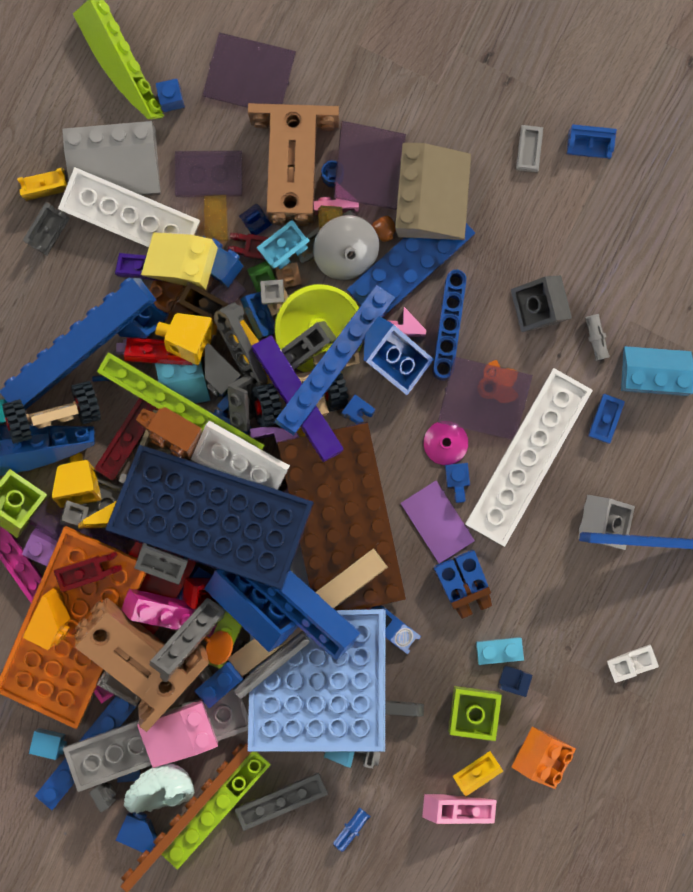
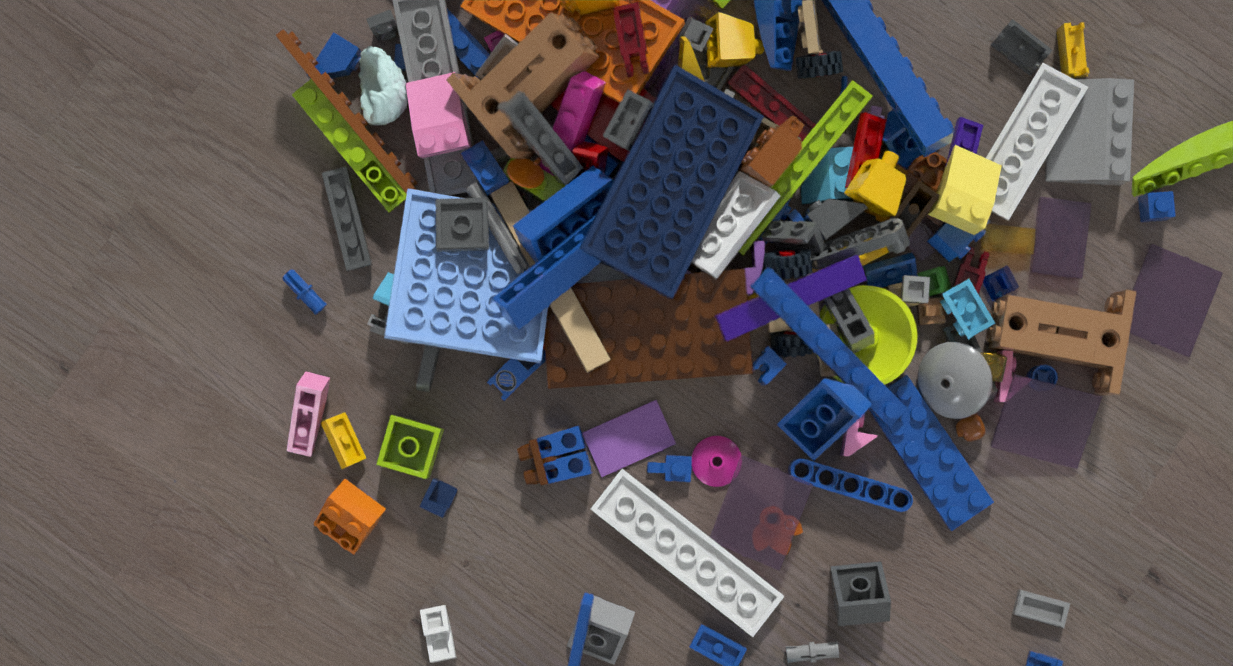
camera: 100 degrees right, 0 degrees up
(273, 697) = (462, 224): none -> dark grey tile
(432, 192) = (1005, 488): dark tan slope -> none
(499, 651) = (474, 486): medium azure plate -> none

